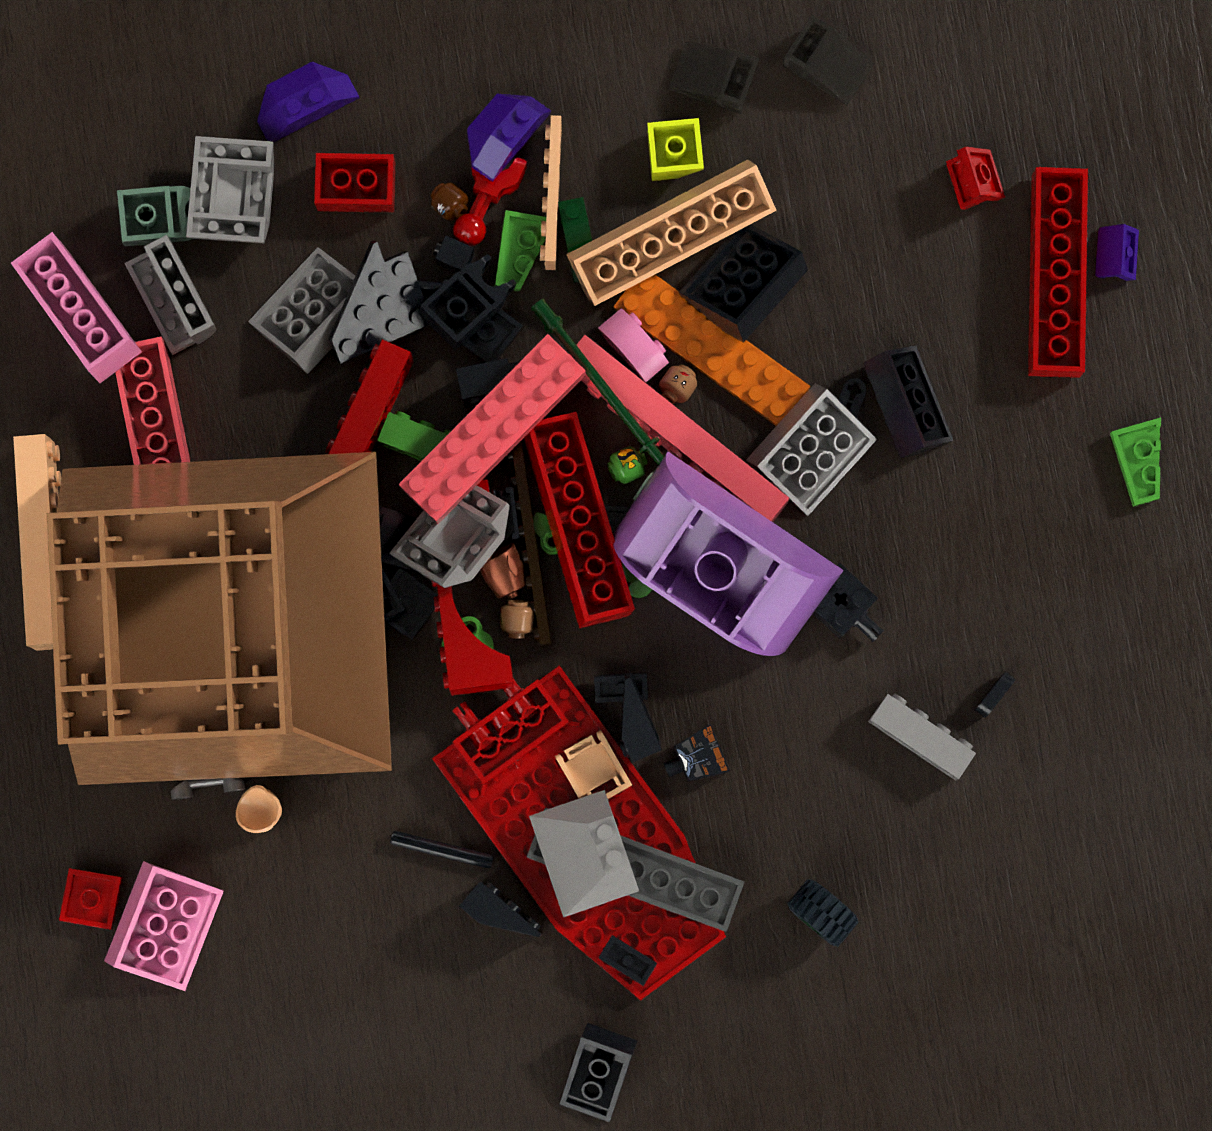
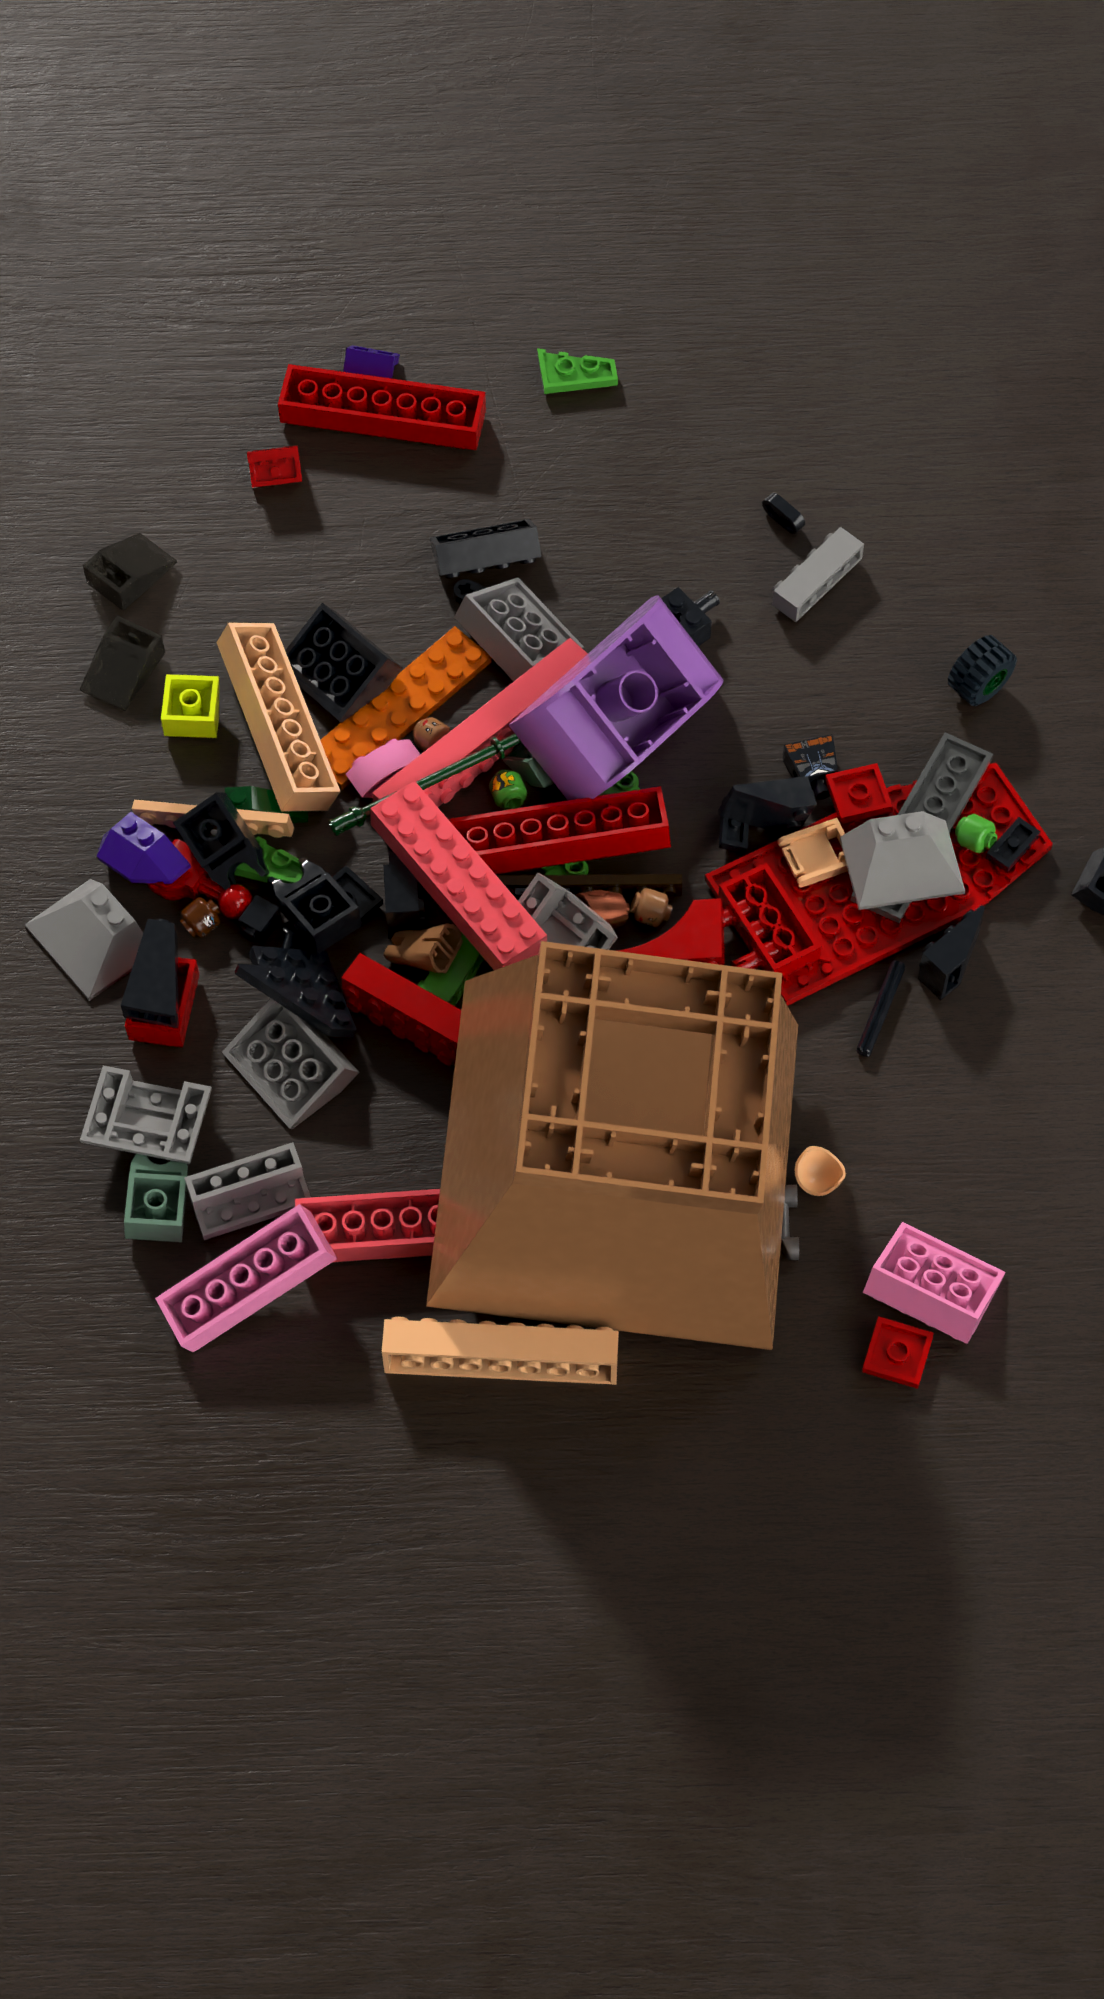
camera: 80 degrees left, 20 degrees down
(302, 99) = (58, 1047): dark purple wedge -> none
(360, 170) = (153, 982): none -> black slope
(418, 105) = (89, 937): none -> light grey slope
(434, 412) = (425, 949): none -> medium nougat piece
(517, 204) = (228, 848): none -> black brick
(632, 923) = (976, 833): none -> bright green head
(665, 803) = (859, 793): none -> red plate

